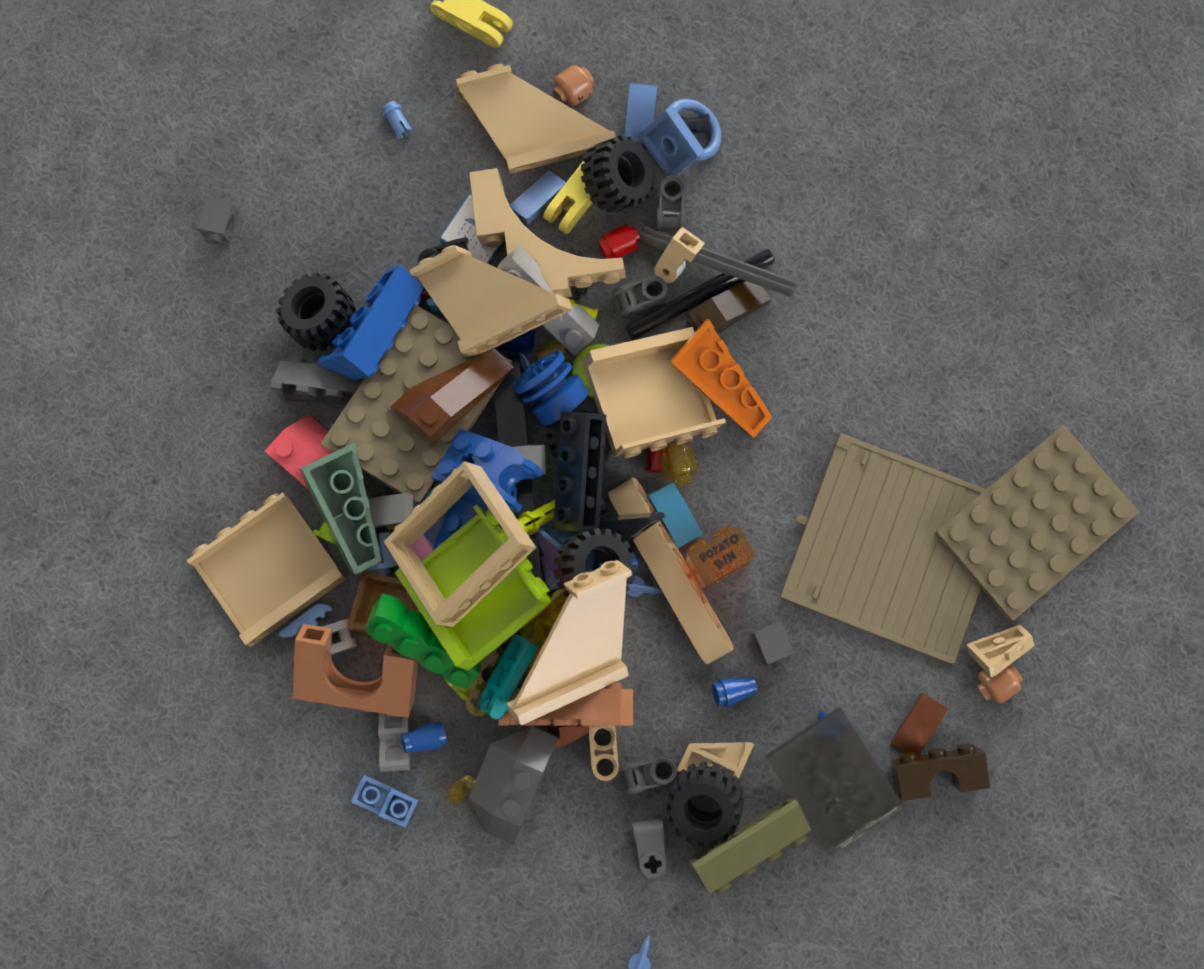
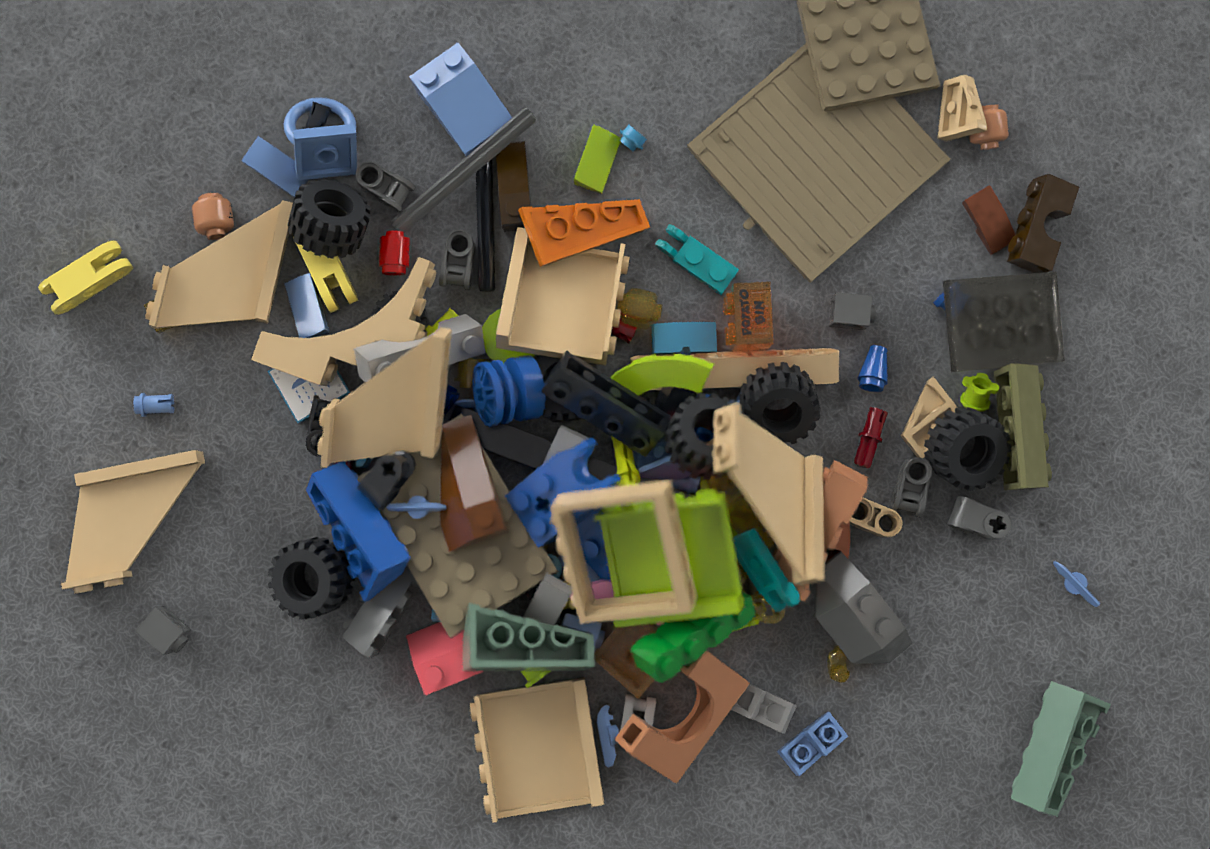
camera: 65 degrees left, 5 degrees up
(294, 139) = (120, 513): none -> tan piece
(414, 362) = (416, 507): none -> medium blue piece
(426, 326) = (387, 478): none -> black piece
(426, 737) = (776, 673): blue cone -> none
(631, 505) = (664, 371): none -> lime tile
(672, 716) = (870, 437): none -> dark red axle
(676, 614) = (776, 384): none -> black tyre
(681, 247) = (435, 196): tan leg -> none
(748, 494) = (699, 260): none -> teal hinge
(761, 790) = (978, 392): none -> lime brick
(776, 227) = (460, 98): none -> medium blue slope
(787, 365) = (597, 159): none -> lime slope
(821, 385) = (632, 138): none -> dark azure plate

